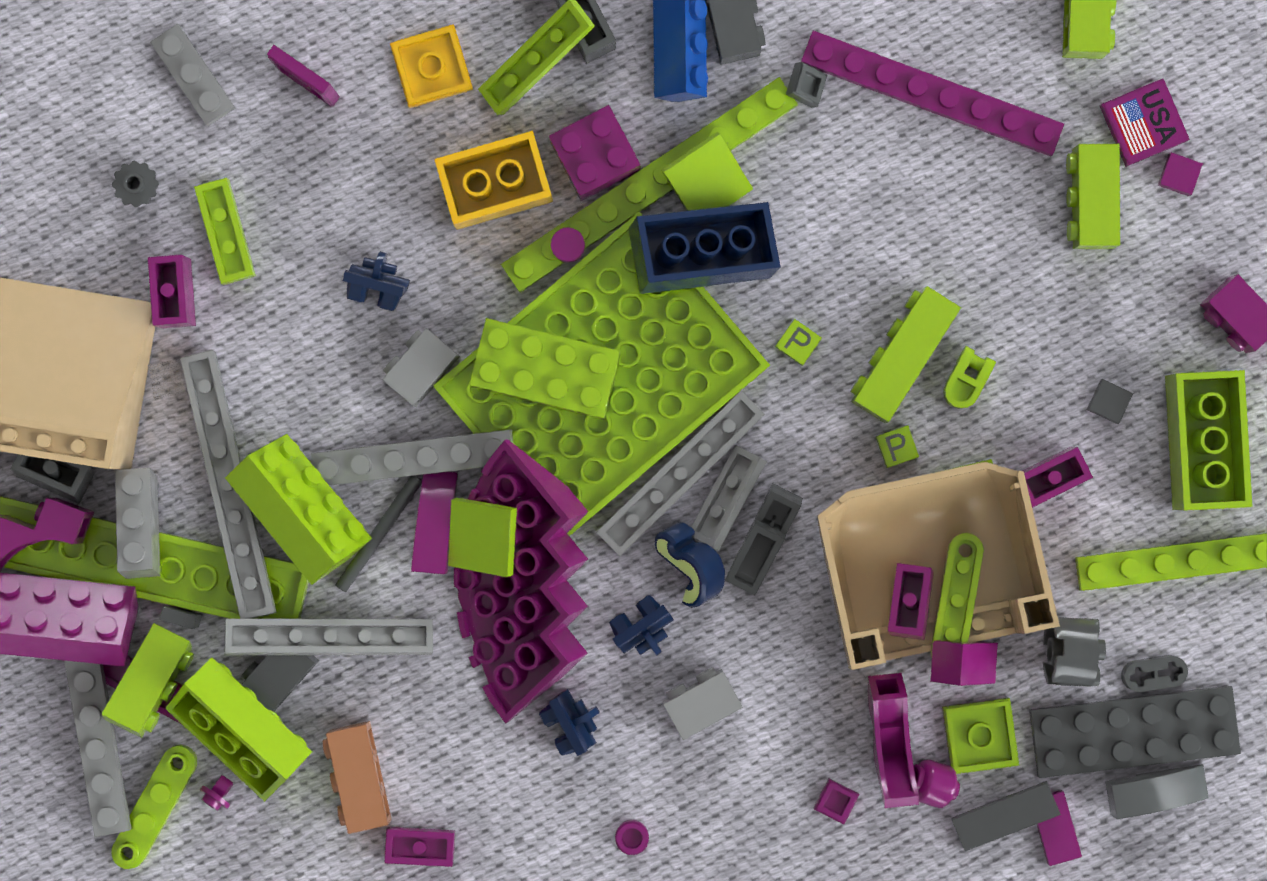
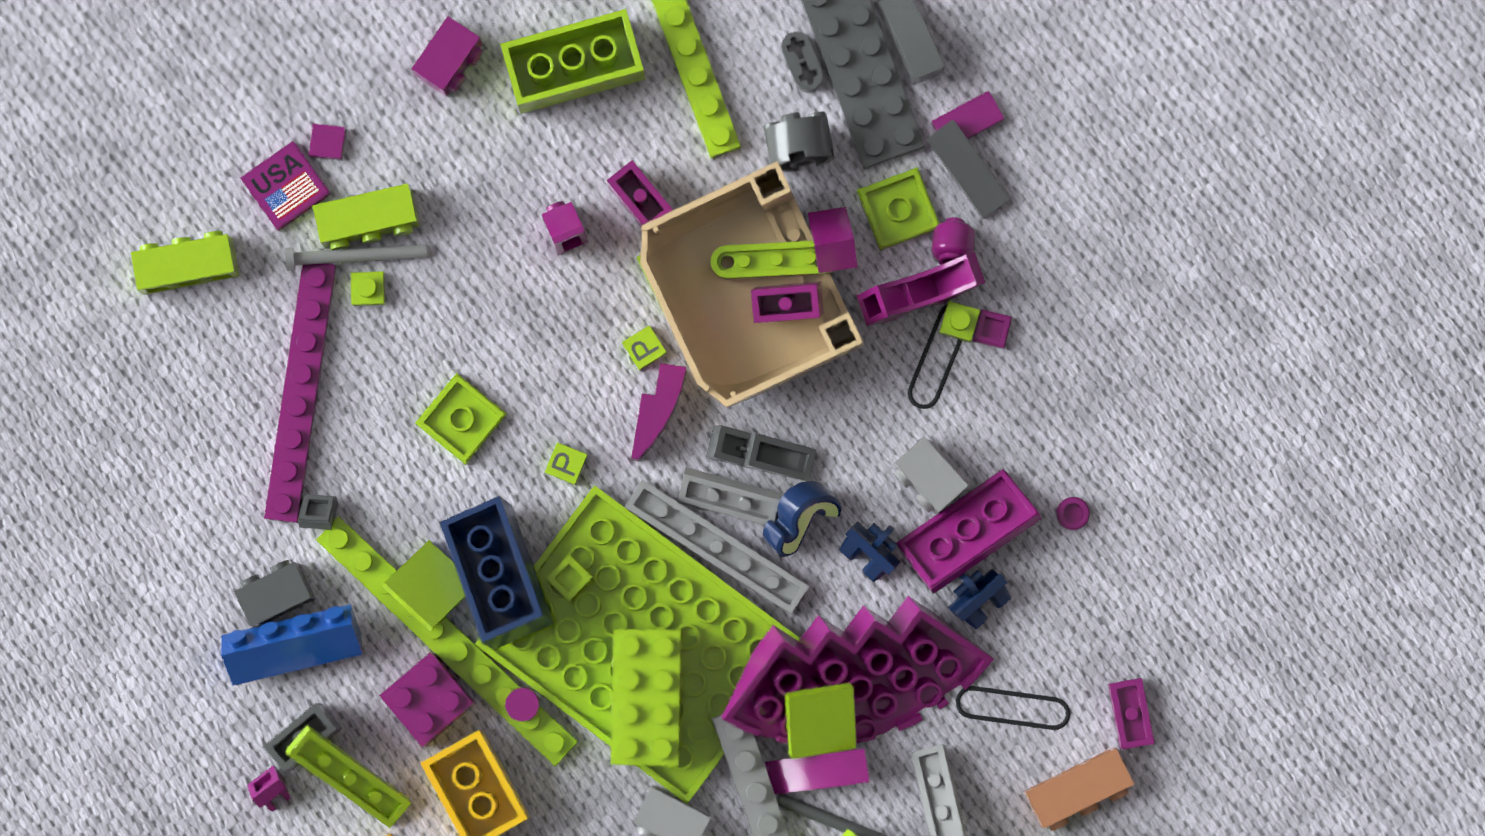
camera: 95 degrees left, 5 degrees down
(439, 727) = (1008, 721): none -> black piece
(638, 729) = (968, 531): none -> magenta tile
(682, 319) = (569, 578): none -> lime plate
(830, 729) = (921, 361): none -> black piece
(832, 446) = (657, 409): none -> magenta slope
(851, 770) = (959, 321): none -> lime plate
(867, 247) = (461, 418): none -> lime tile
(905, 354) = (555, 360): lime brick -> none
(962, 390) = (576, 301): lime plate -> none
(1020, 182) = (367, 288): none -> lime plate
(1039, 393) = (564, 226): none -> magenta slope
(1068, 115) = (355, 255): none -> light grey bar
(1110, 401) = (556, 159): dark grey tile -> none

